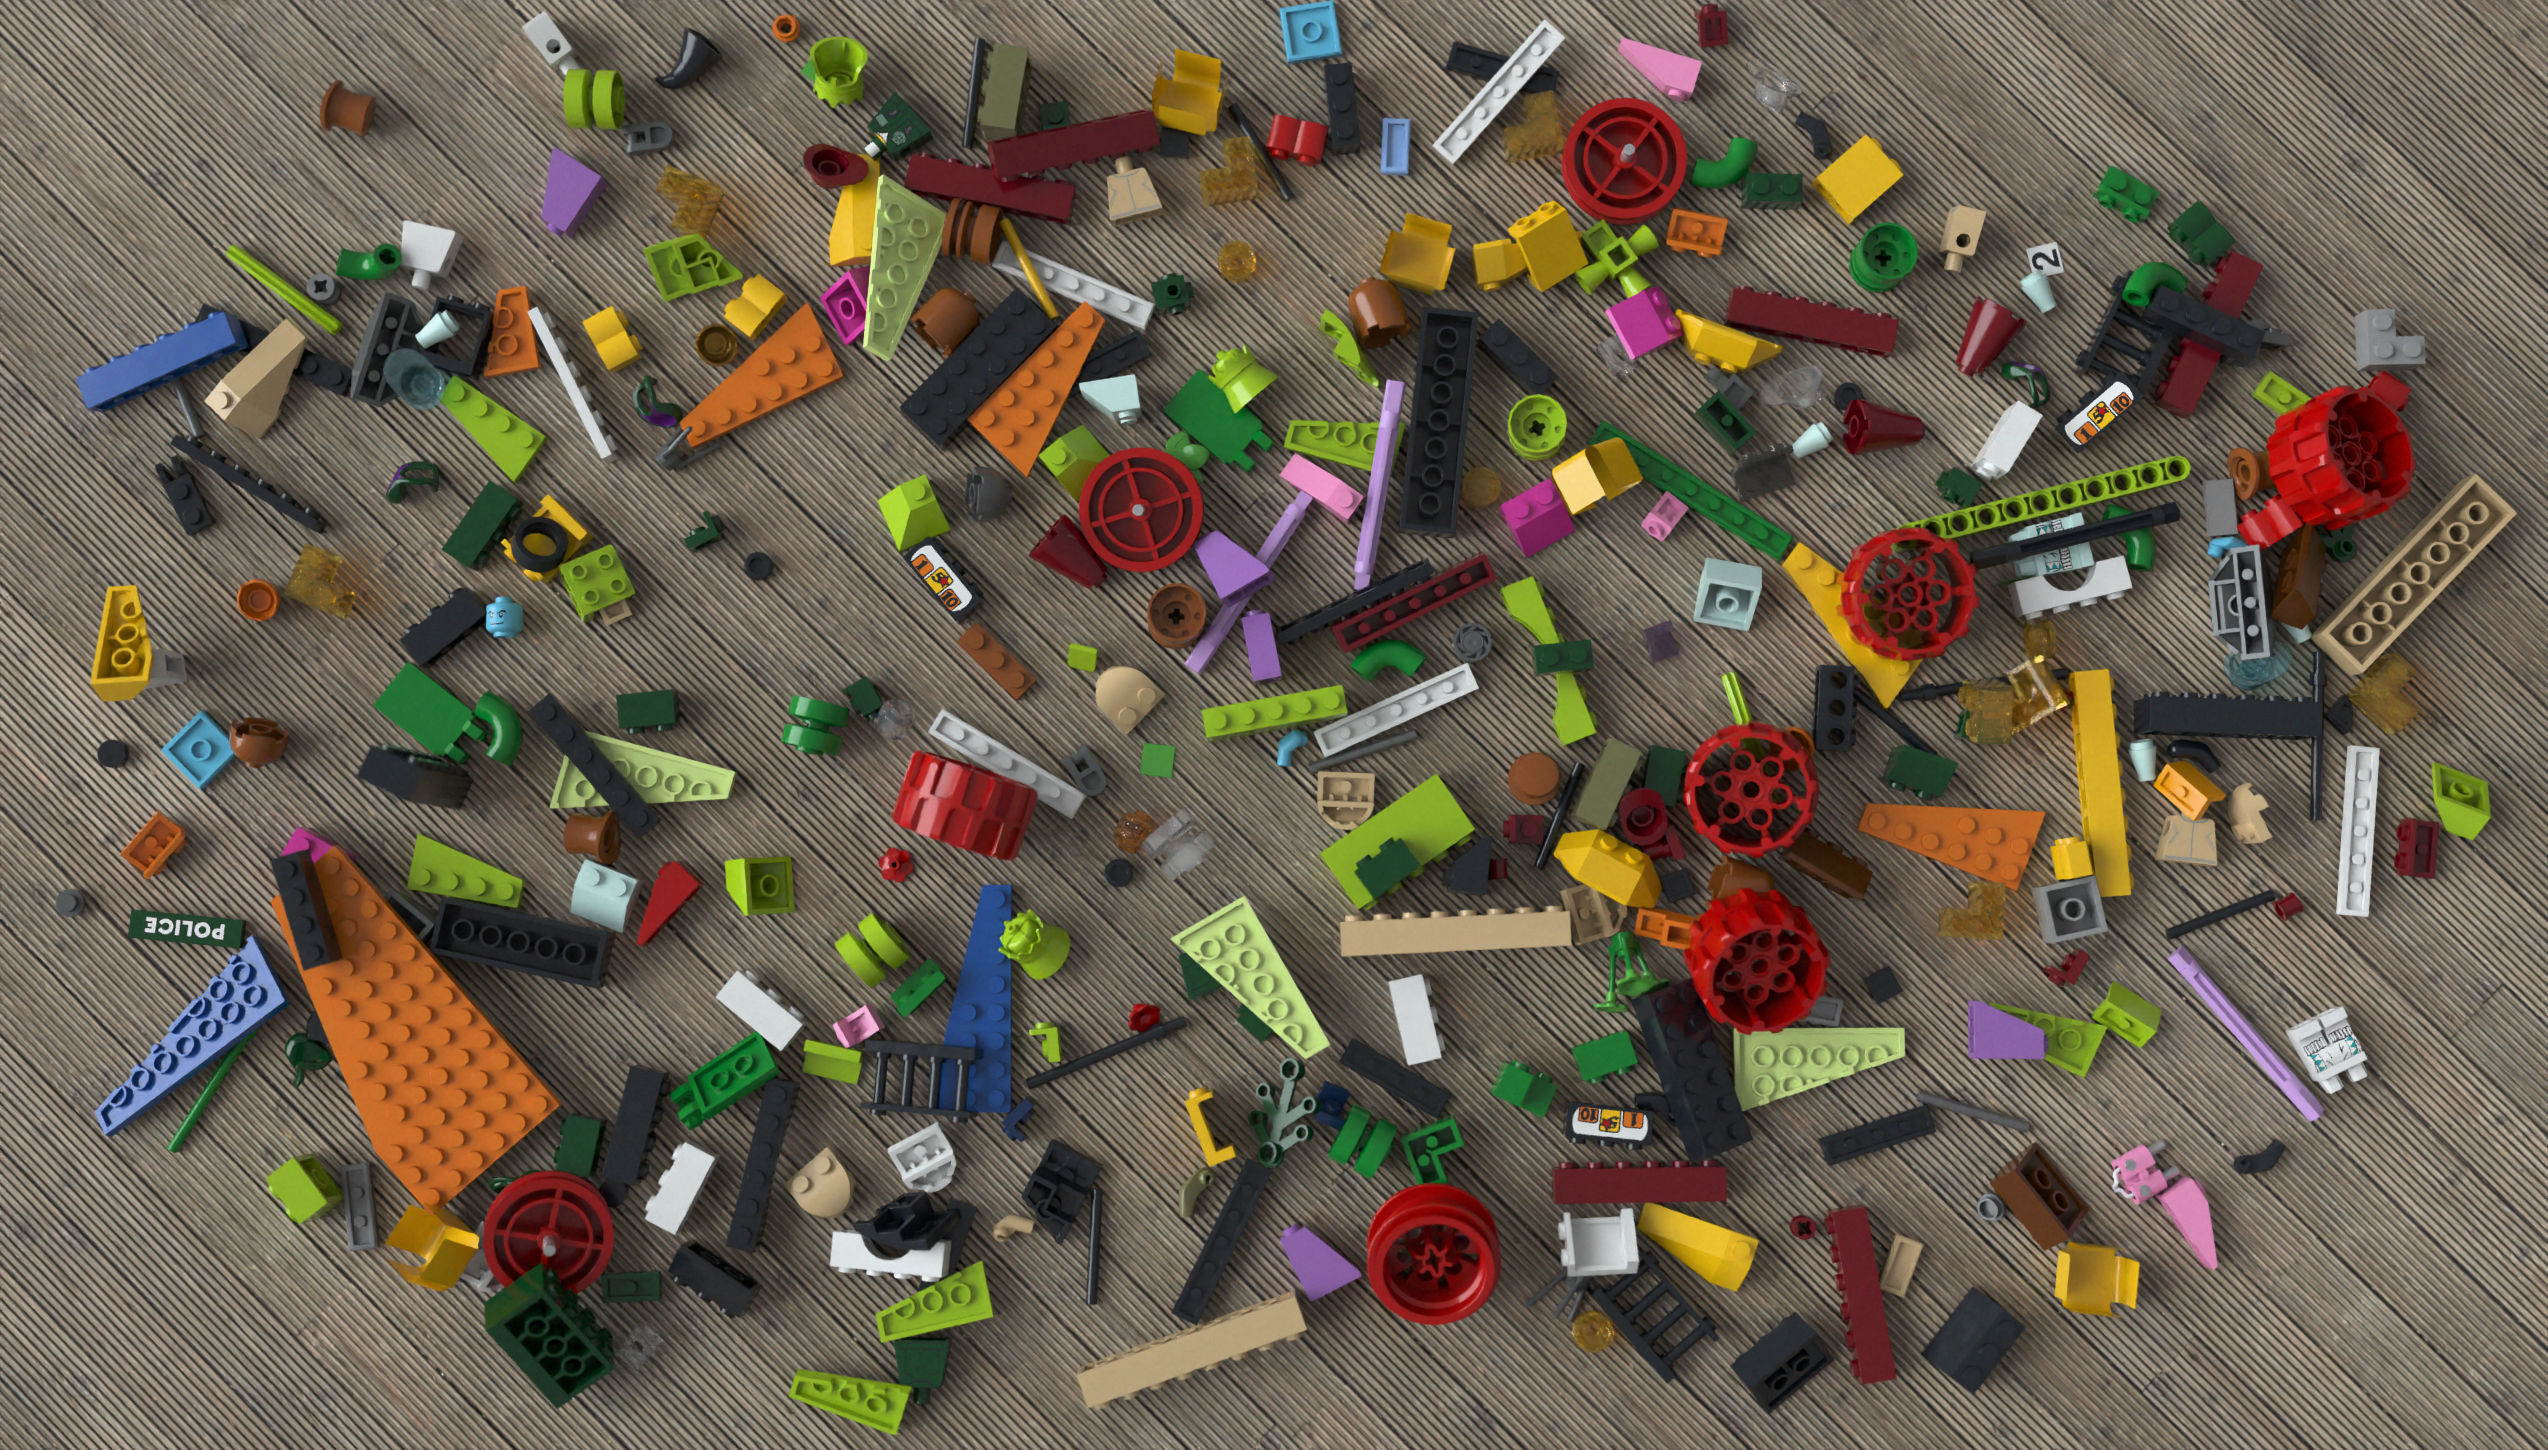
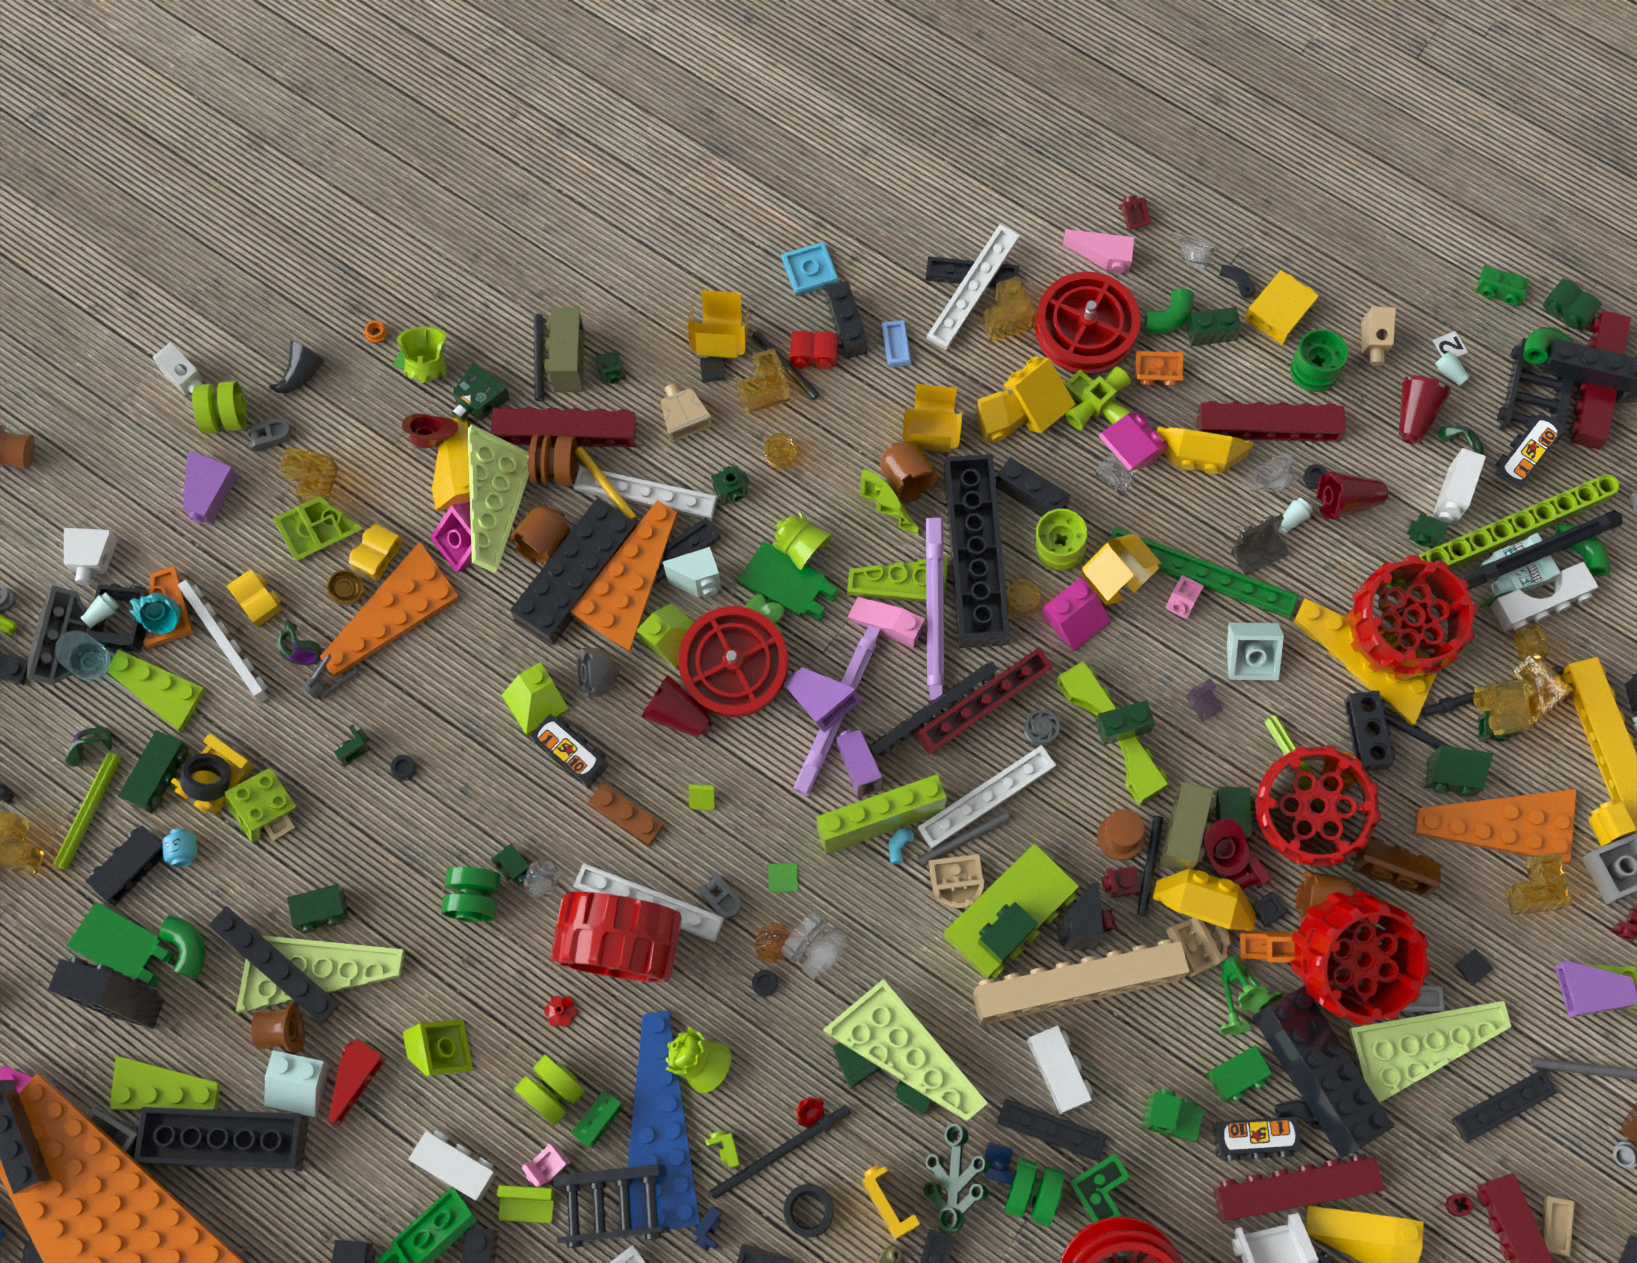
camera: 10 degrees left, 15 degrees down
(369, 266) = (37, 572): green cylinder -> none
(406, 556) = (87, 811): none -> lime axle
(501, 343) = (156, 613): none -> teal hair
(1073, 143) = (627, 377): dark red brick -> none
(1107, 1130) = (793, 1196): none -> black tyre
(1126, 696) = (746, 824): tan slope -> none
(1190, 607) = (782, 733): dark orange wheel -> none
(1388, 654) = (969, 750): green cylinder -> none
(1724, 423) = (1218, 511): dark green brick -> none
(1732, 389) = (1217, 486): dark grey plate -> none

